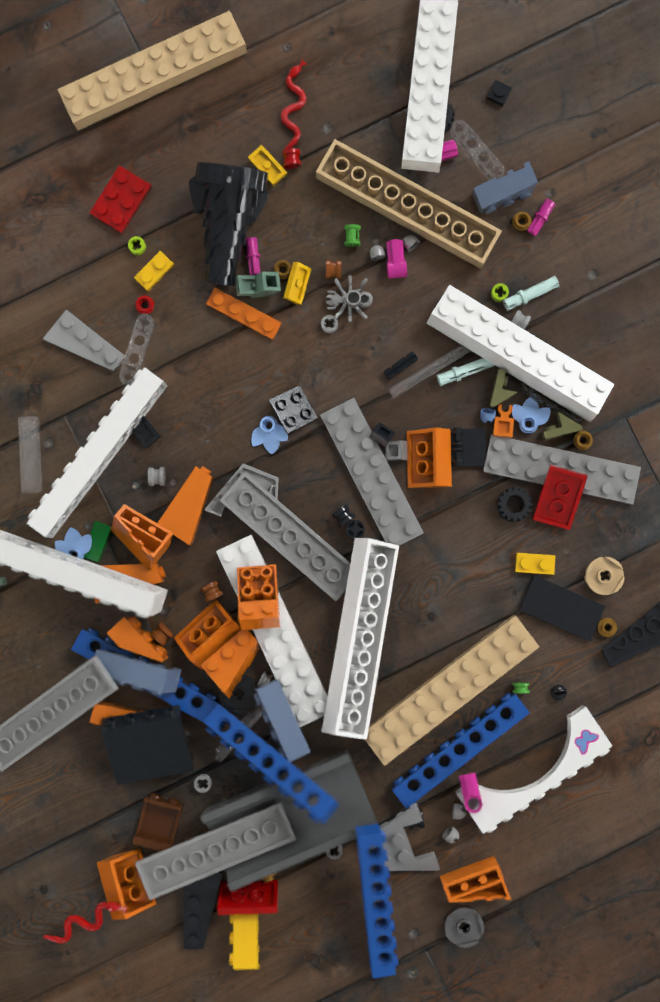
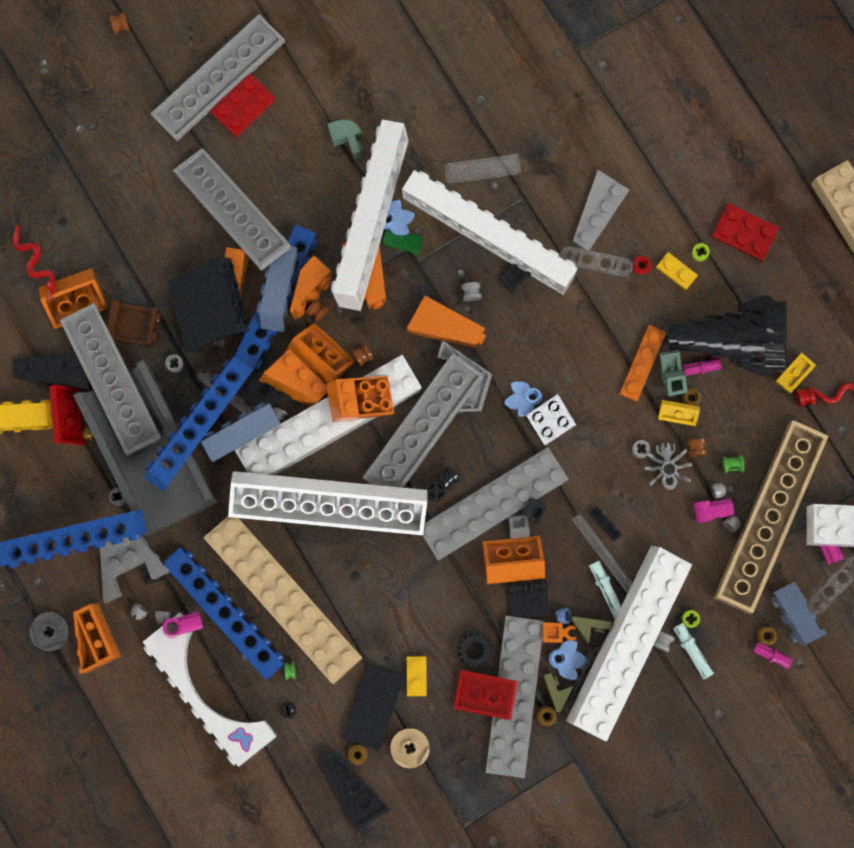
camera: 80 degrees right, 5 degrees down
(141, 535) = (411, 281): orange wedge -> none

